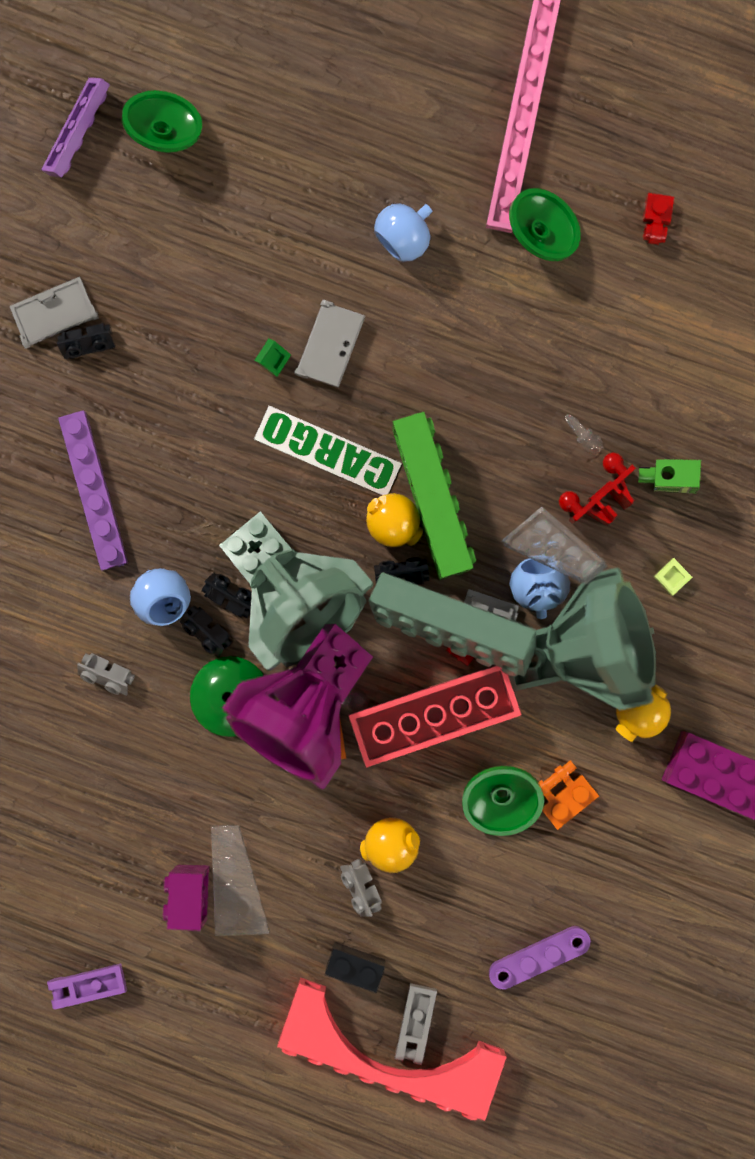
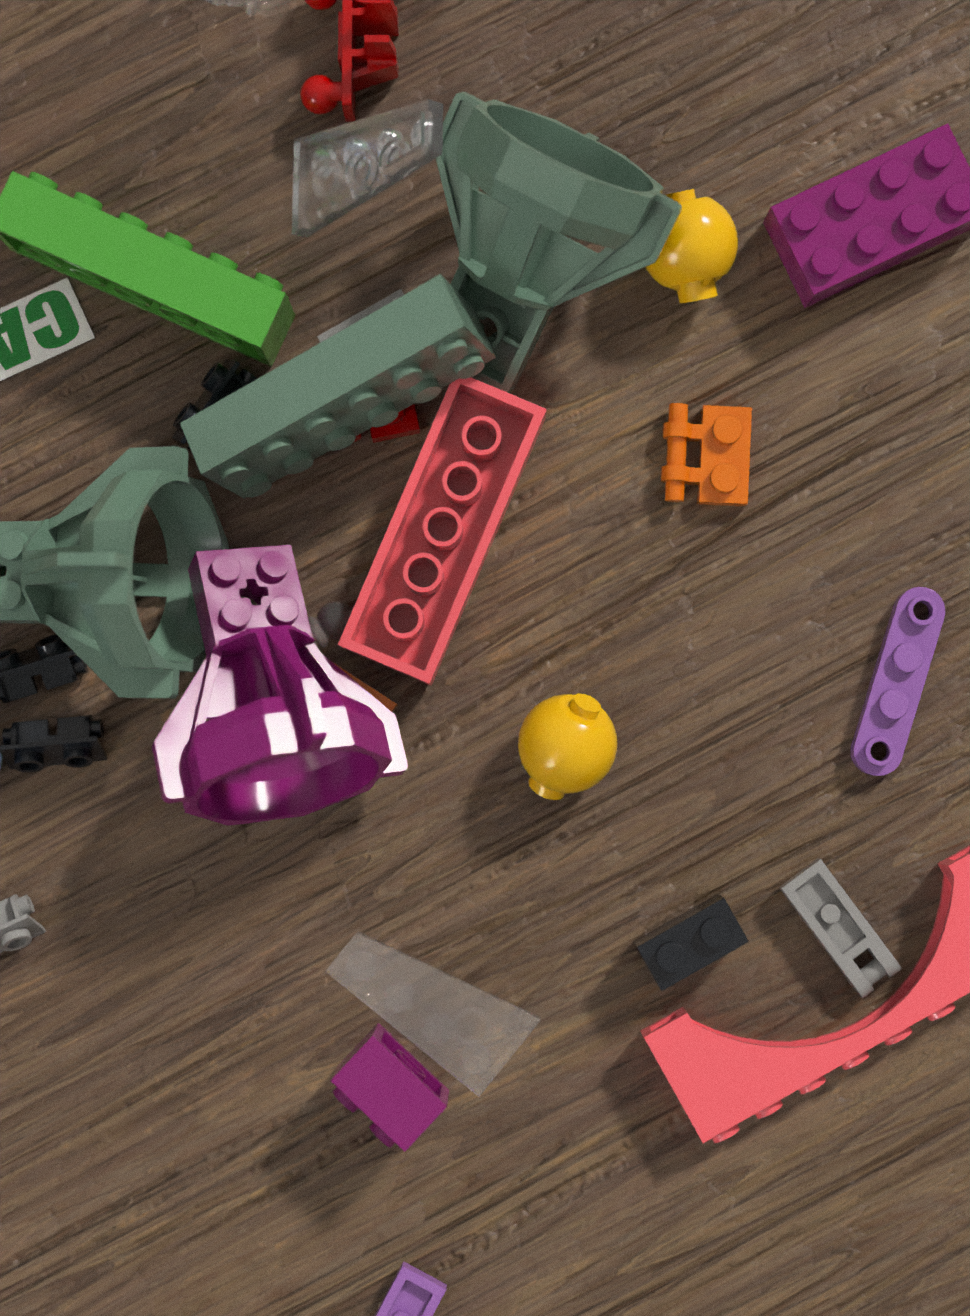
camera: 45 degrees left, 0 degrees up
(210, 686) = (139, 814): green dish -> none
(364, 899) = (611, 850): light grey hinge -> none
(394, 520) = (130, 351): yellow brick -> none
(502, 811) = (660, 554): green dish -> none
(538, 587) = (396, 233): light blue piece -> none
(672, 577) = (546, 50): yellowish green tile -> none

